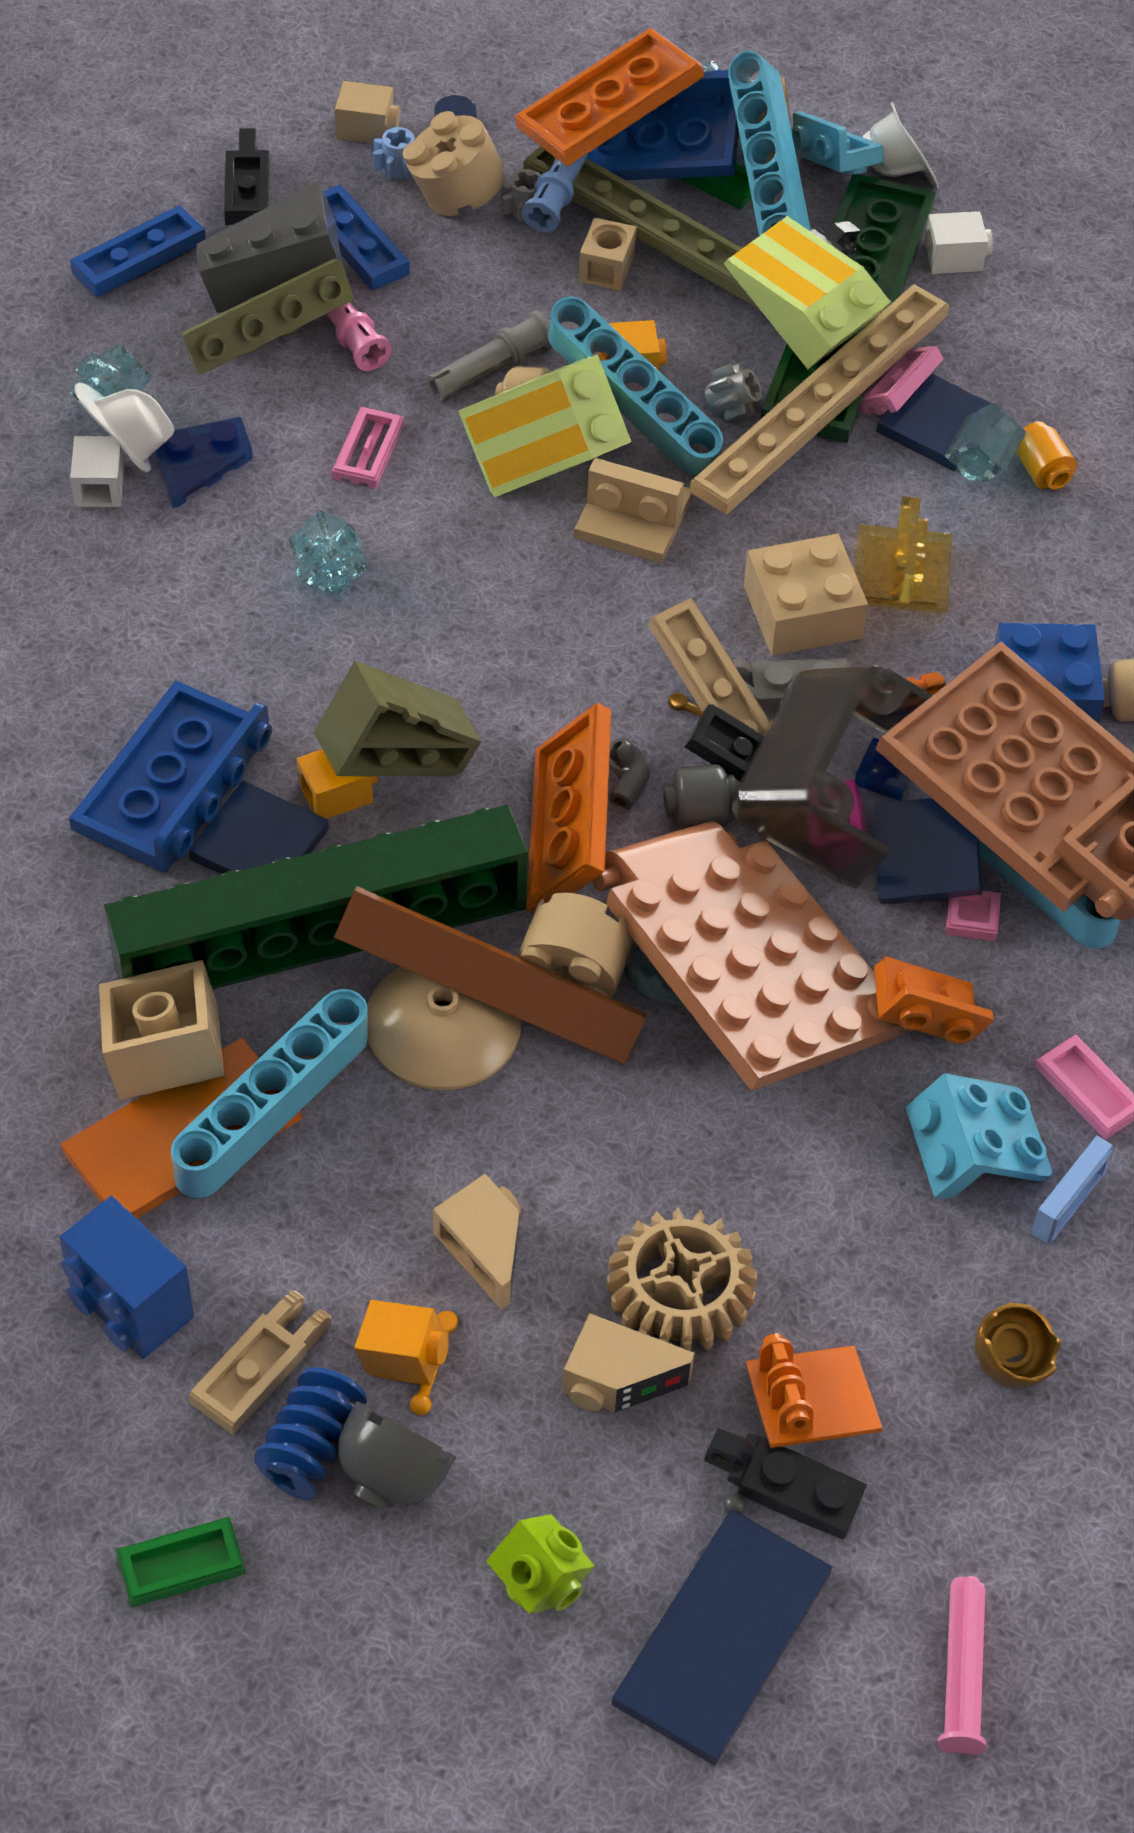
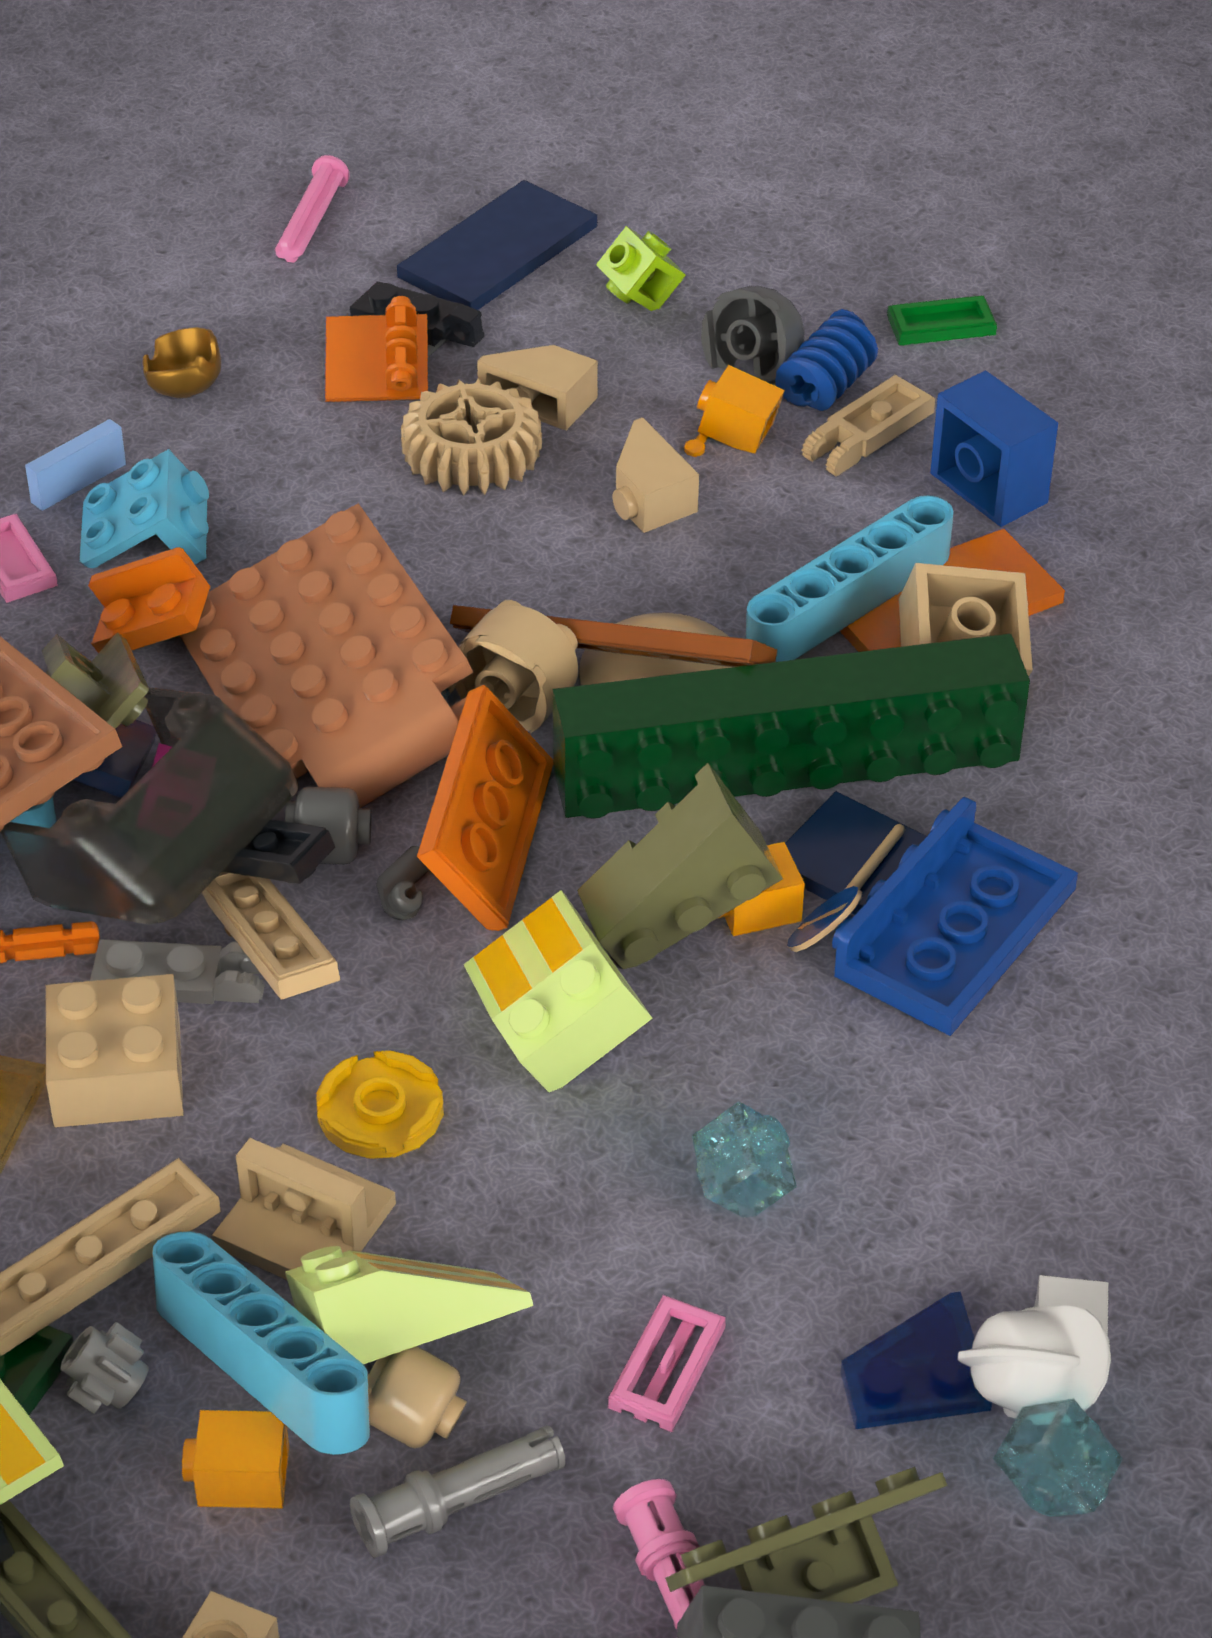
camera: 170 degrees left, 10 degrees down
(274, 761) = (838, 907): none -> piece
(487, 658) = (555, 993): none -> yellowish green slope
(601, 613) = (380, 1122): none -> yellow tile
(938, 869) = (107, 684): none -> olive bracket

